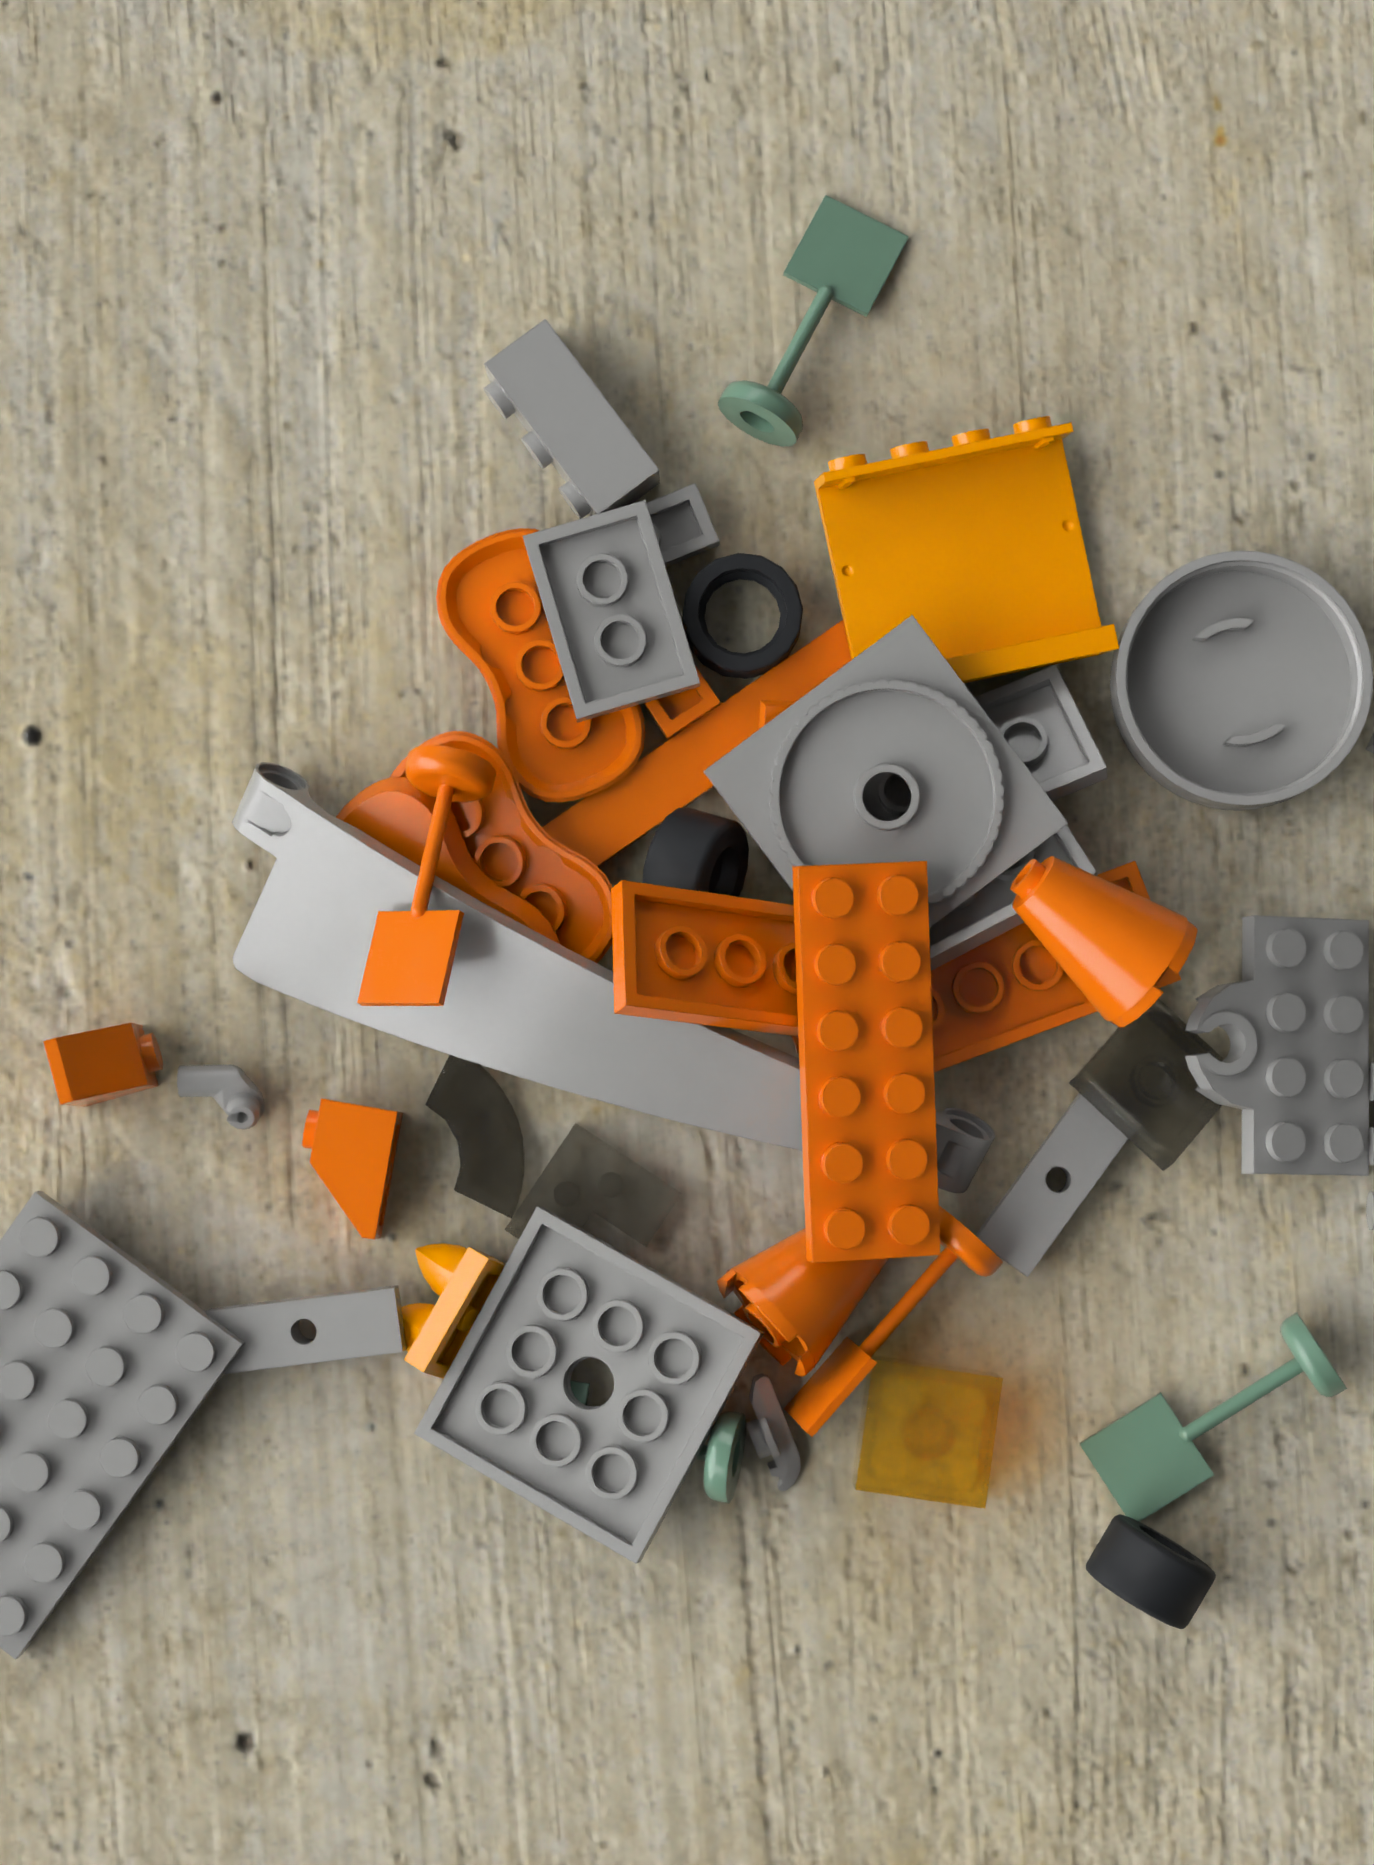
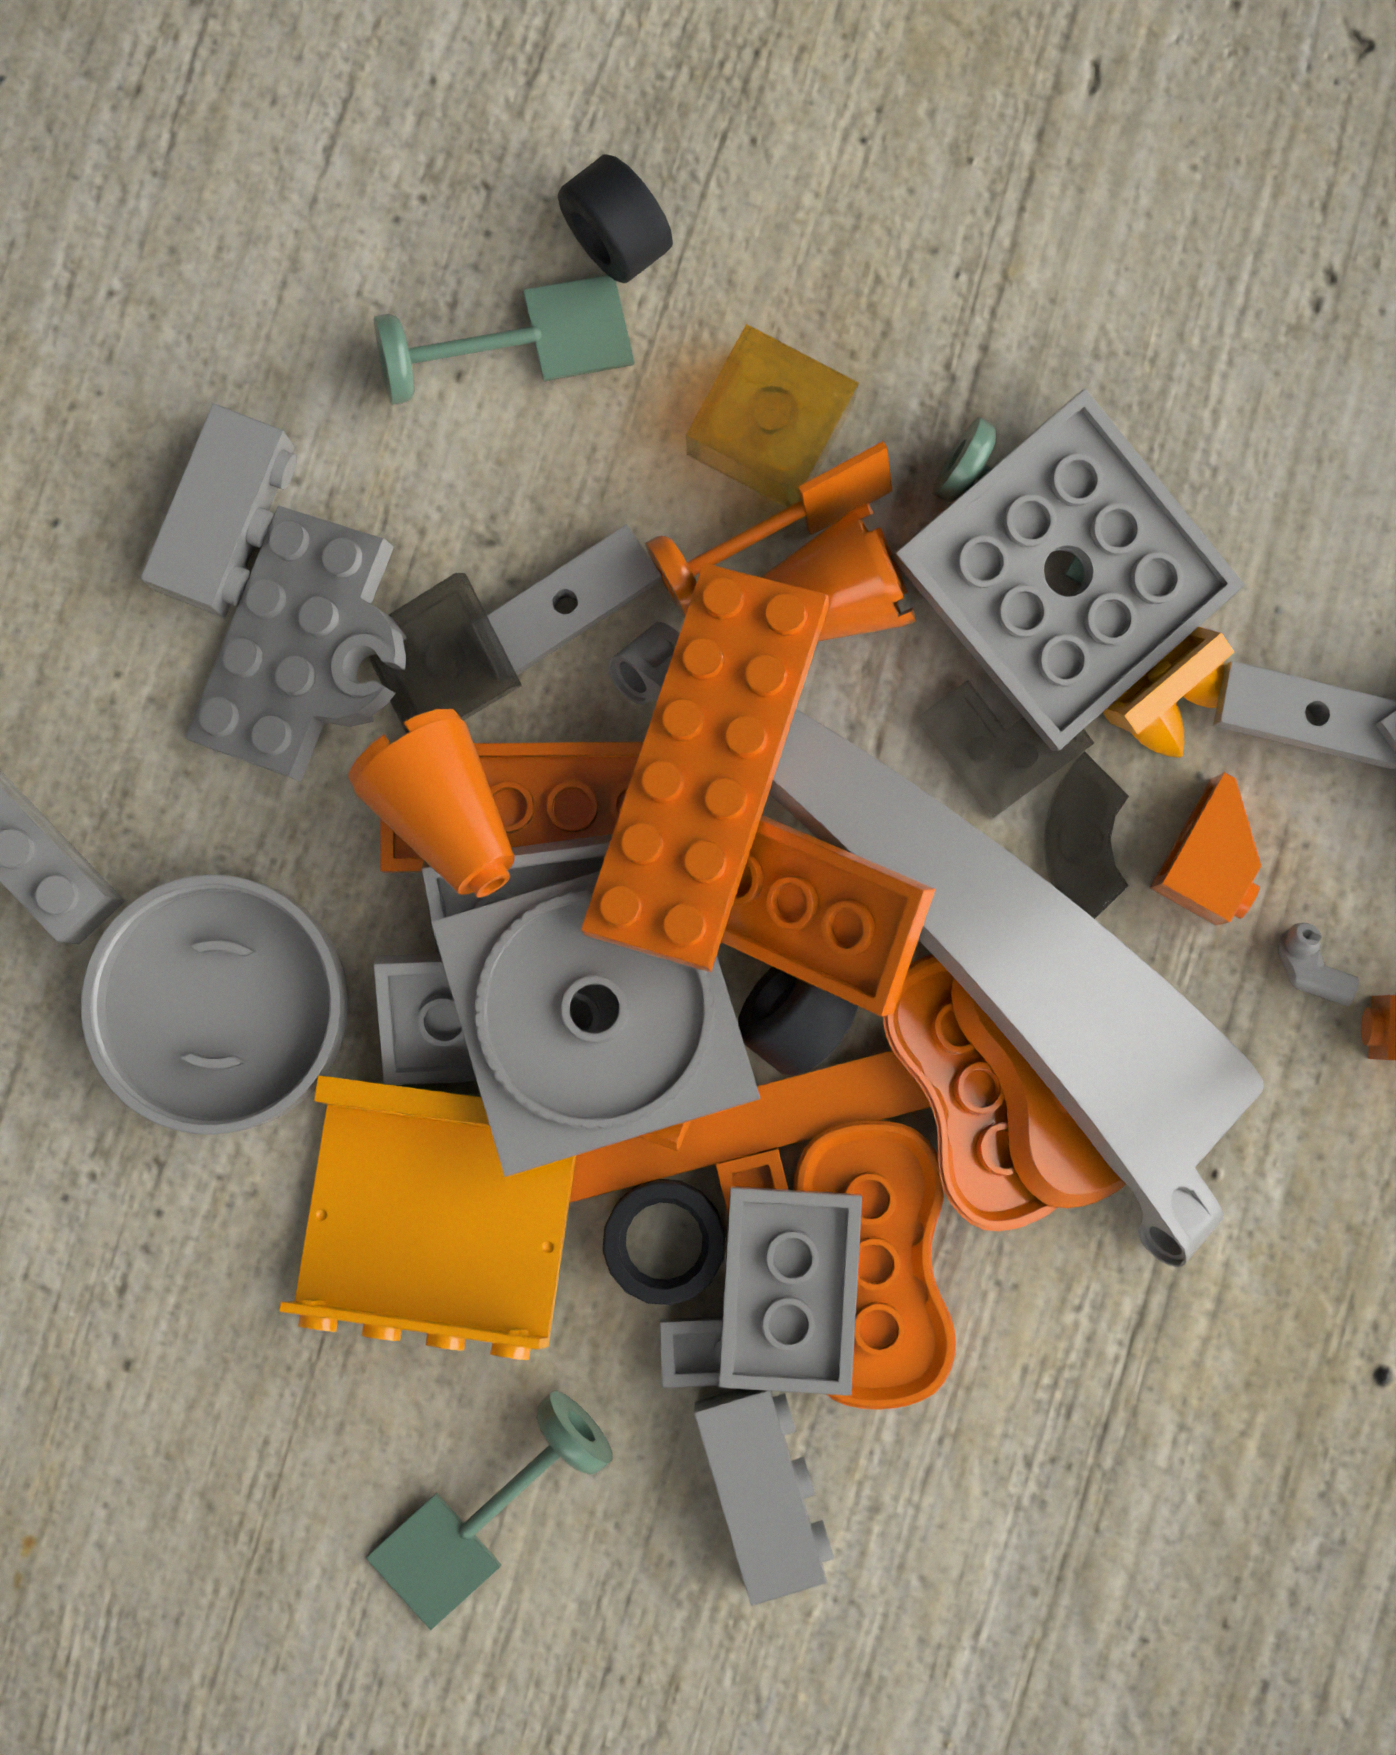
camera: 160 degrees left, 0 degrees up
(417, 948) = (1098, 1026): orange piece -> none
(772, 1434) = (913, 469): light grey piece -> none

